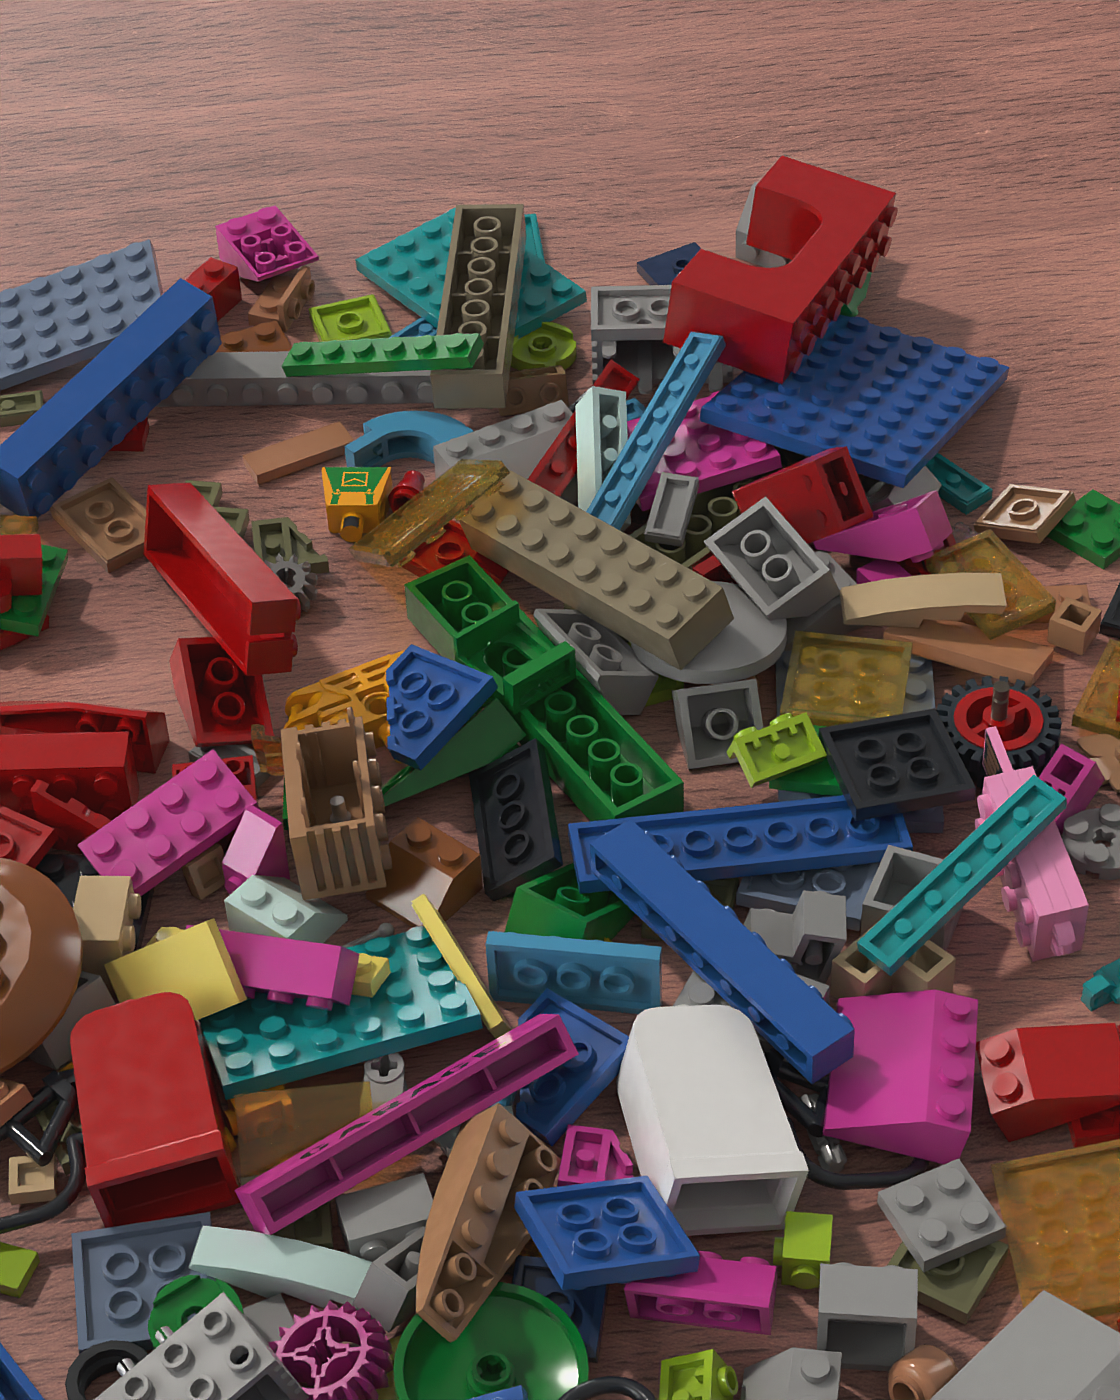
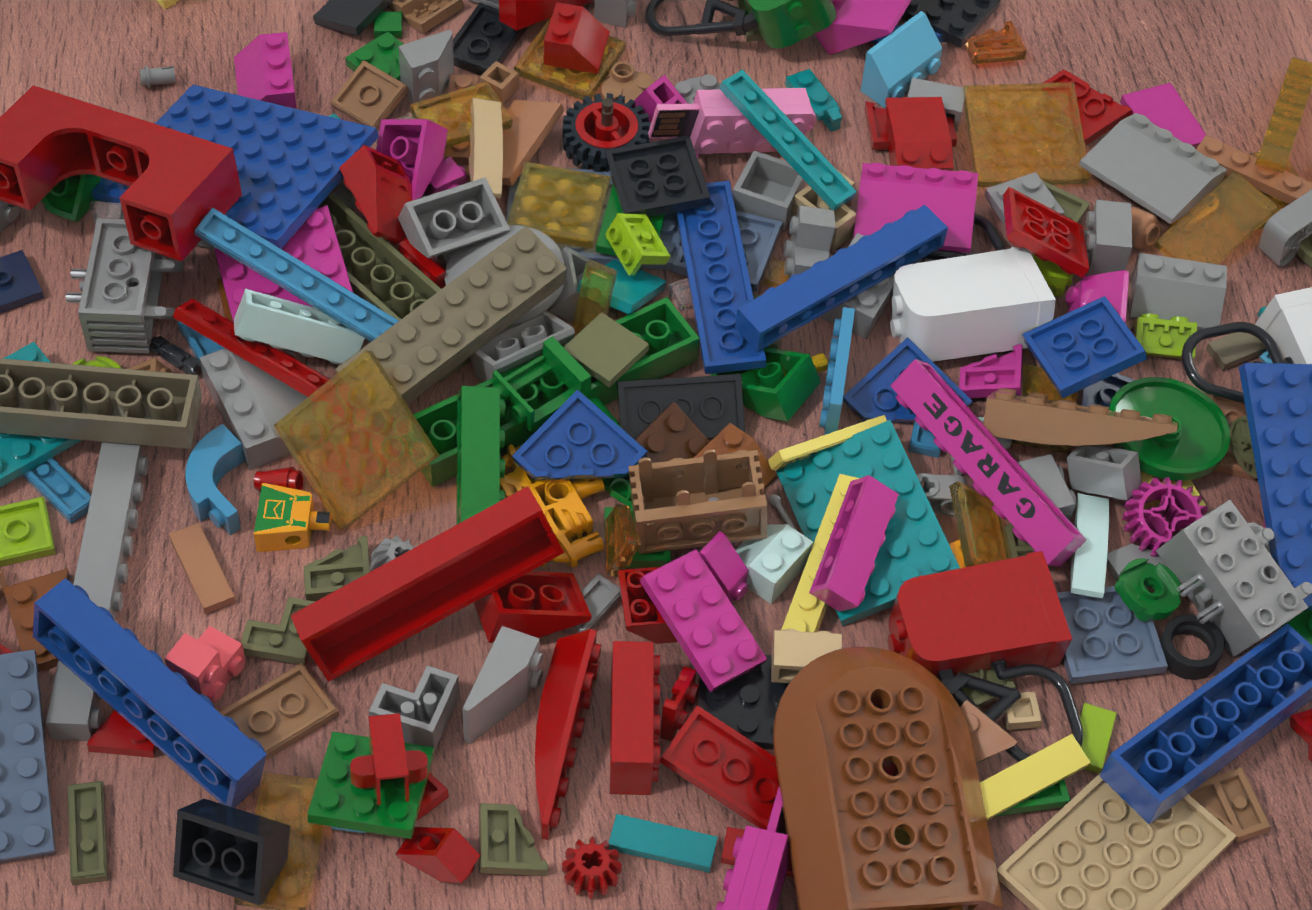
camera: 95 degrees left, 10 degrees up
(87, 613) = (424, 711): none -> light grey brick
(110, 664) = (503, 682): none -> light grey slope
(153, 452) = (207, 661): none -> coral brick
(186, 964) = (866, 601): light yellow tile -> none
(383, 355) = (140, 469): green plate -> none
(390, 619) = (479, 450): none -> green brick
(459, 805) = (671, 436): none -> reddish brown plate
(581, 719) = (606, 349): none -> olive tile
(664, 700) = (594, 294): none -> clear yellow tile
(671, 509) = (376, 279): light grey tile -> none
(696, 742) = (632, 291): none -> teal tile
(842, 1197) = (1045, 232): none -> red plate
(1018, 336) = (156, 76): none -> light grey pin
(1037, 430) = (266, 70): none -> dark pink slope
(1071, 547) = (427, 65): none -> light grey slope

